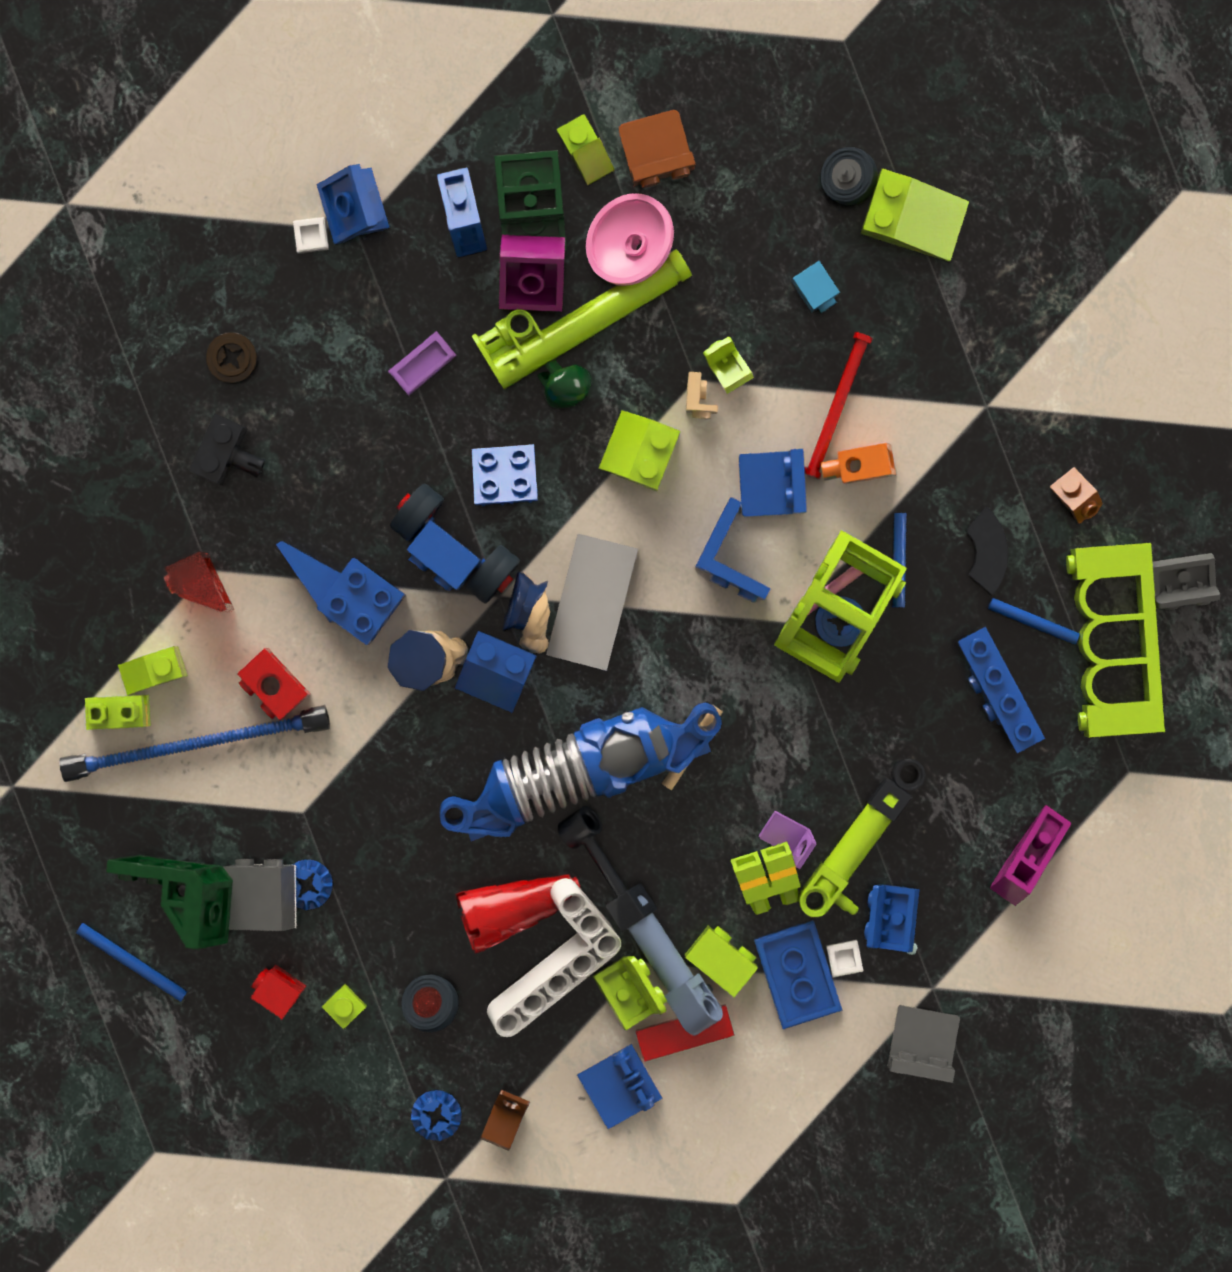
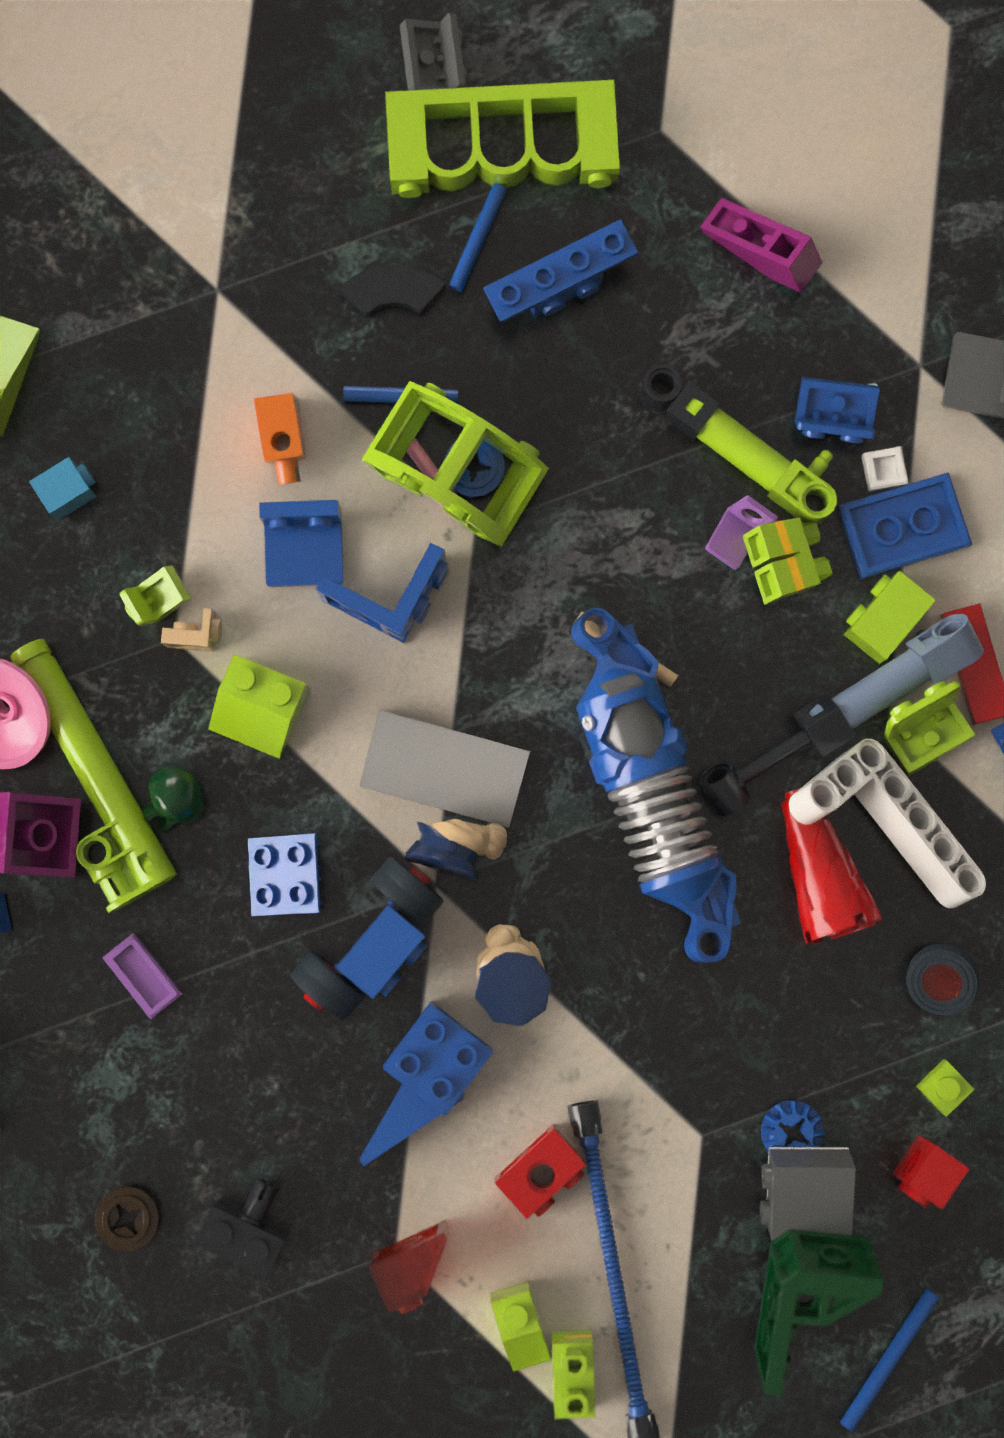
camera: 90 degrees left, 5 degrees down
(495, 671) = (528, 890): blue slope -> none
(837, 405) = (132, 435): red bar -> none
(1077, 495) = (326, 181): bracket -> none

